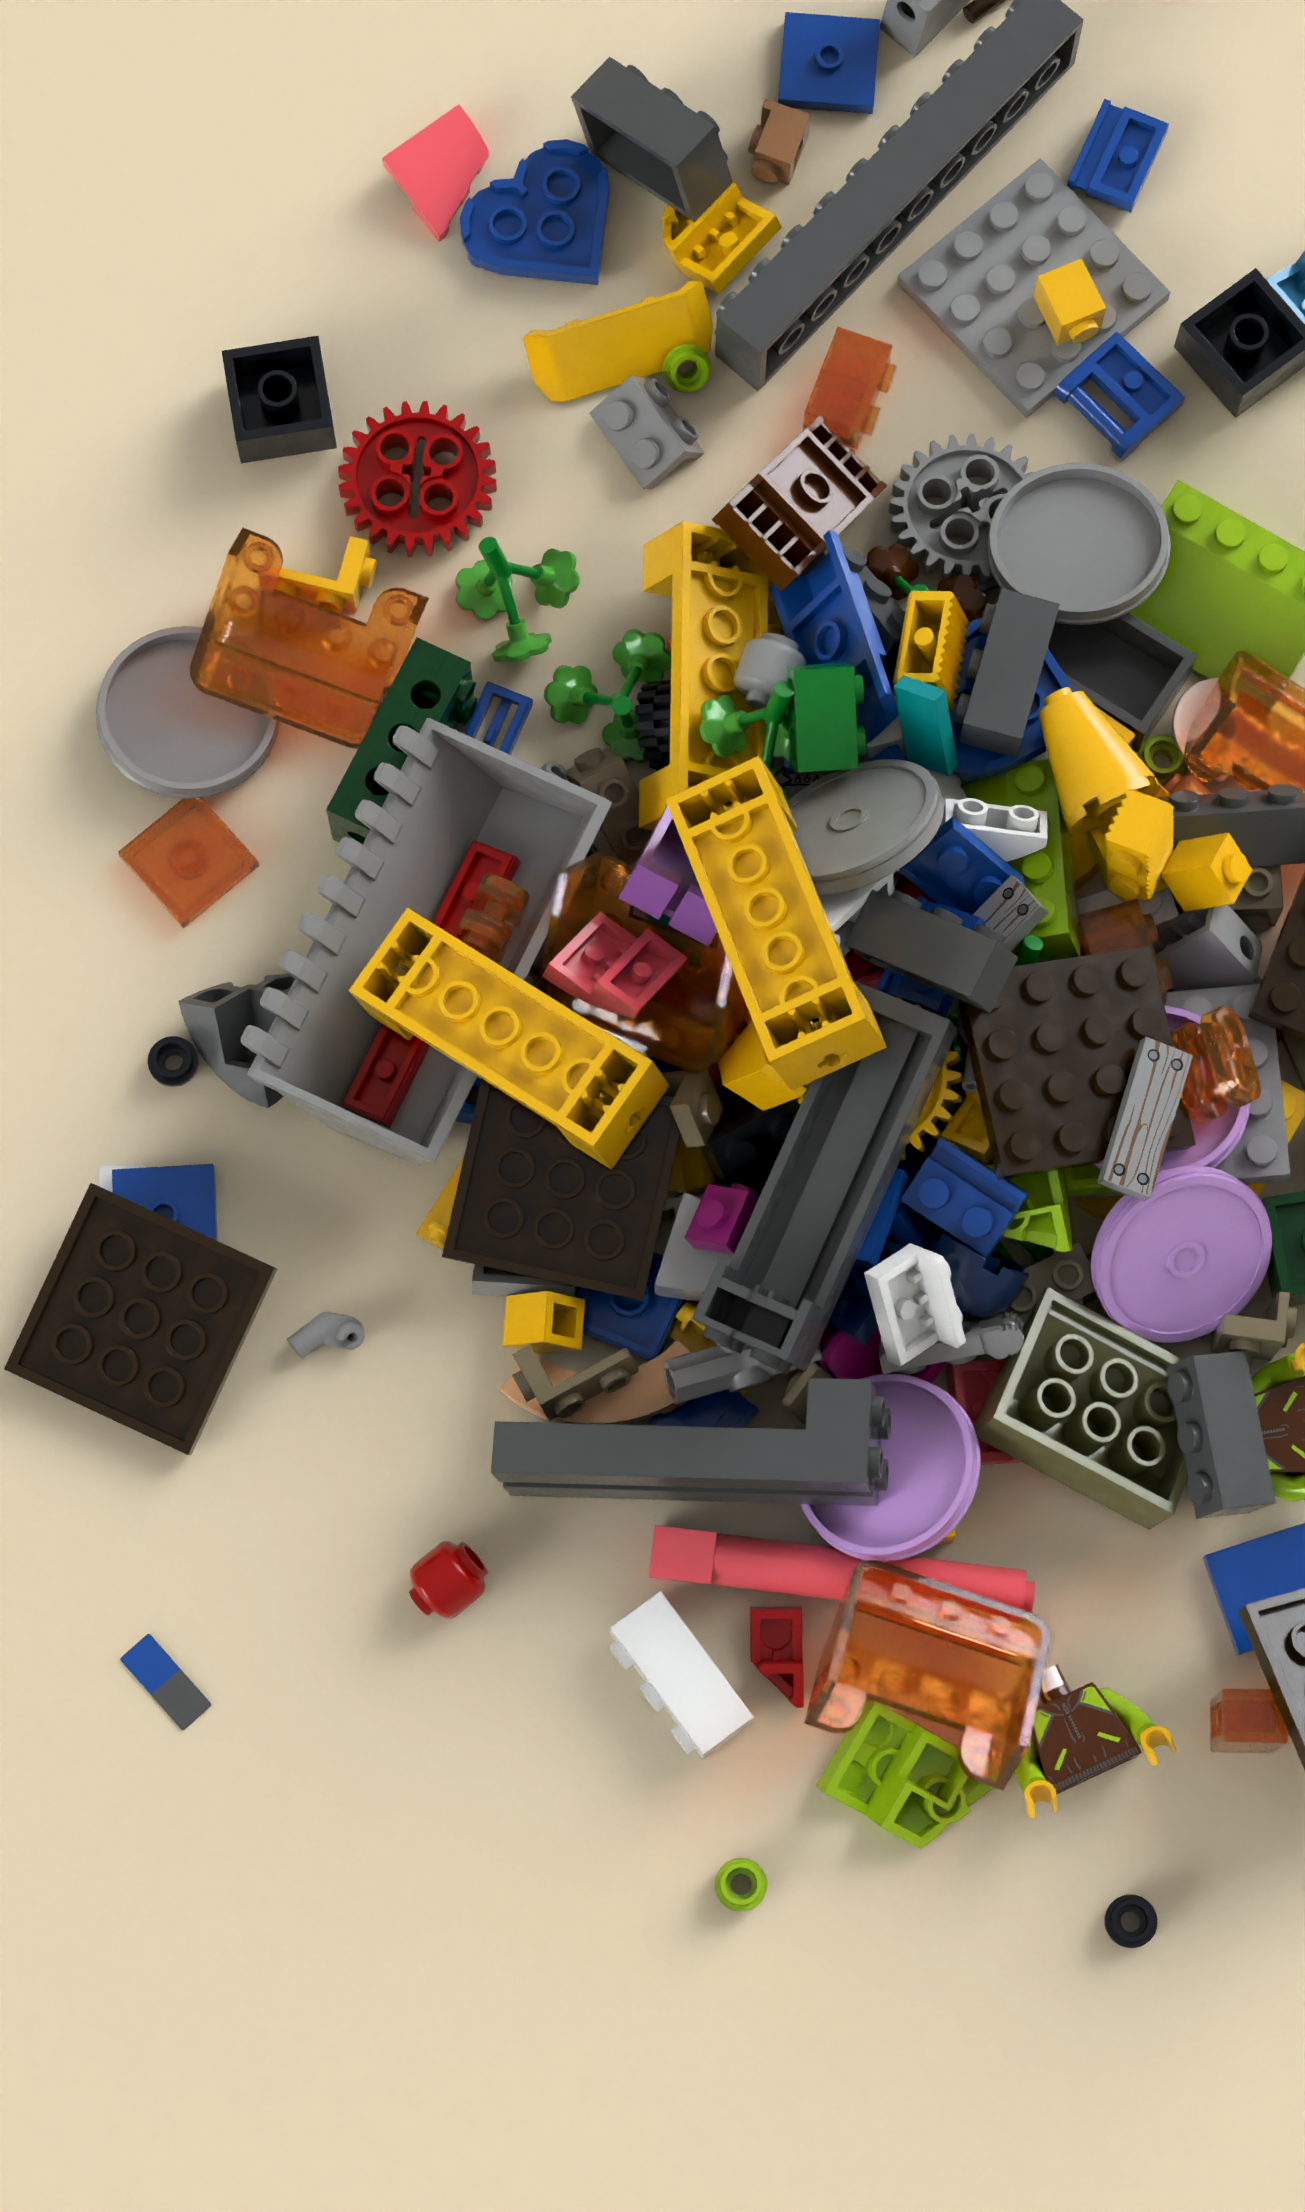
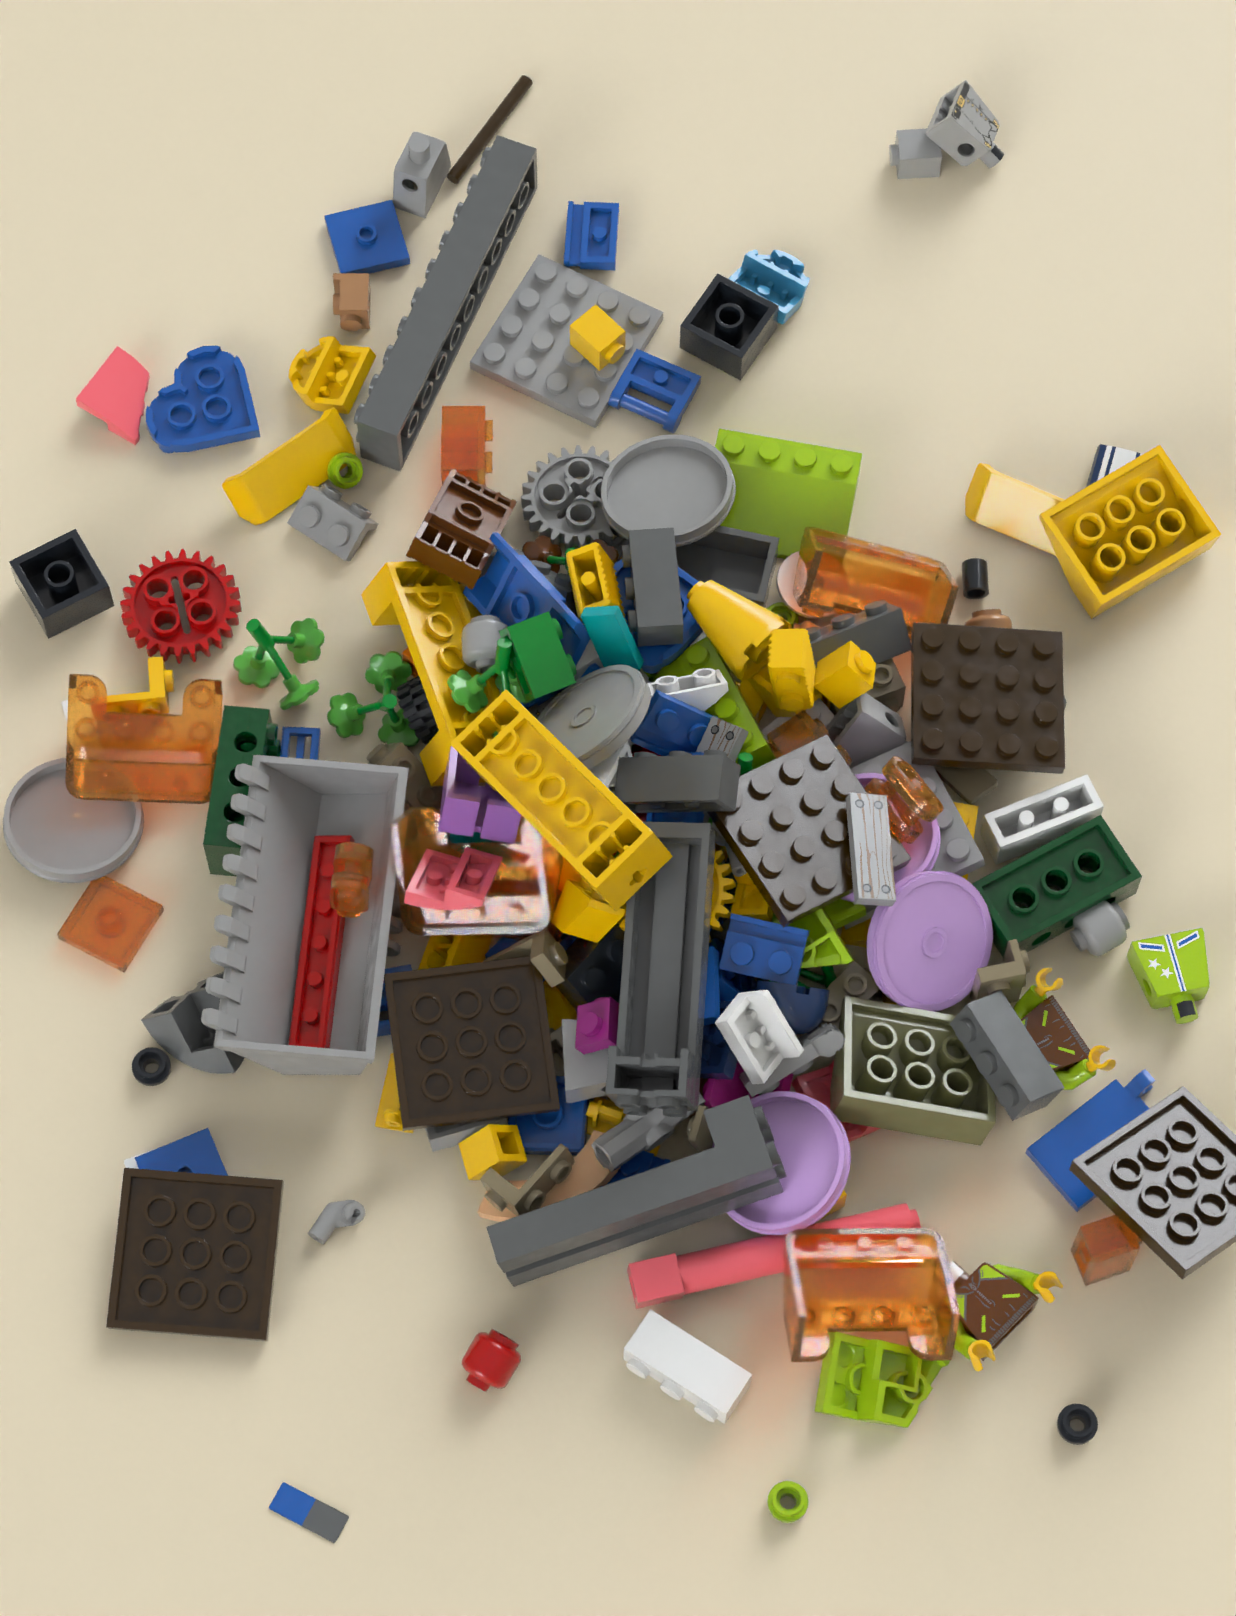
camera: 20 degrees left, 10 degrees down
(510, 1036) = (397, 950): yellow plate -> none
(653, 138) = (264, 322): dark grey piece -> none
(778, 1649) = (749, 1324): red slope -> none

